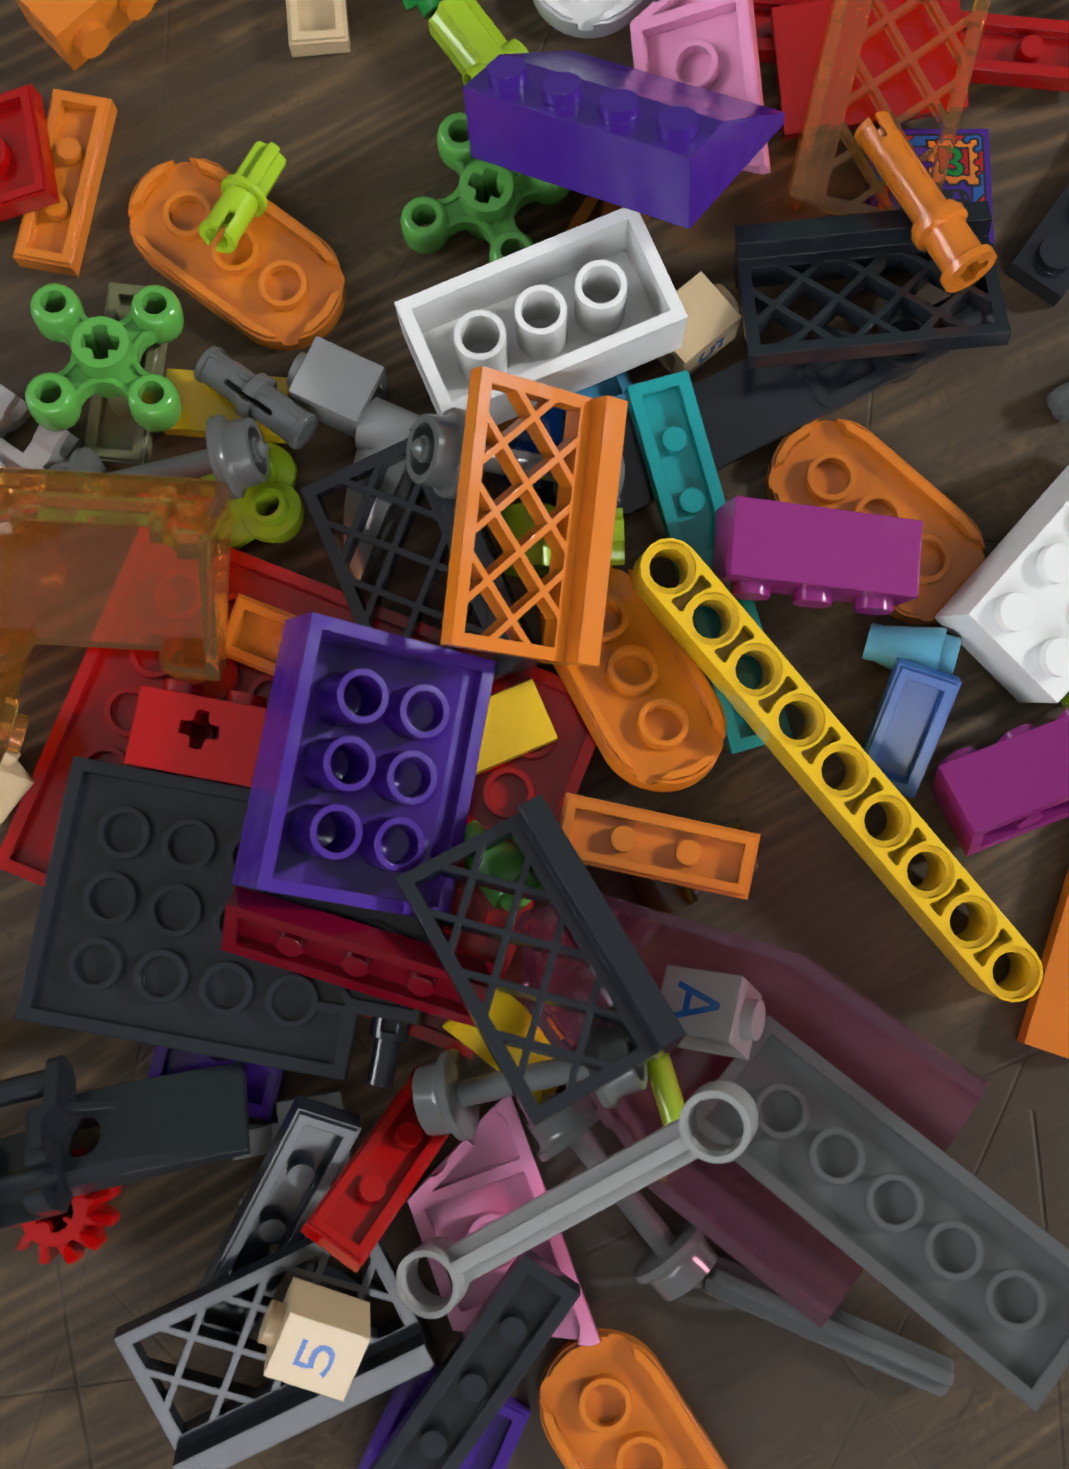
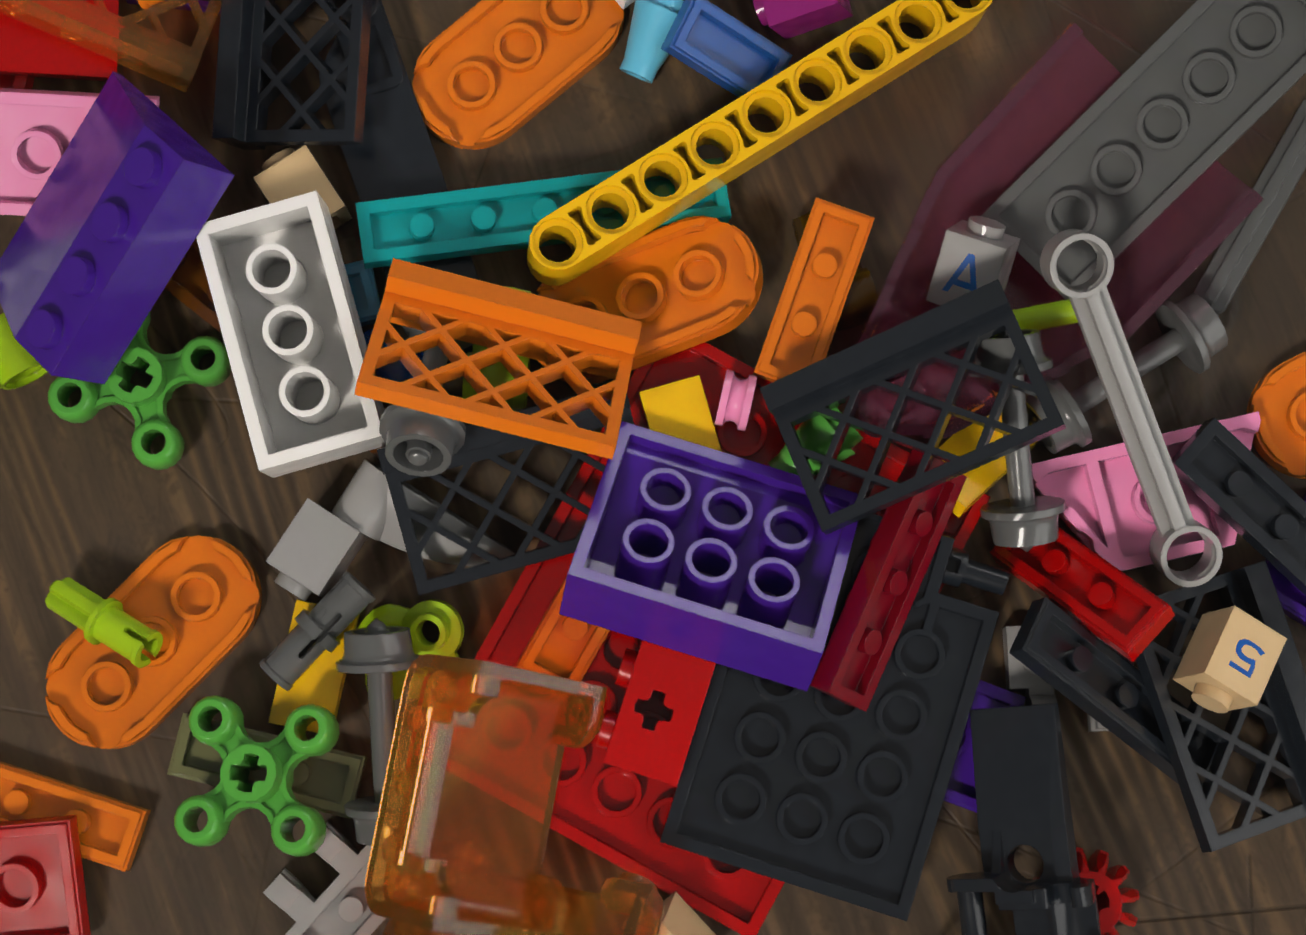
camera: 85 degrees left, 0 degrees up
(535, 778) = (736, 400): none -> bright pink bush
(816, 555) = (556, 108): magenta brick -> none

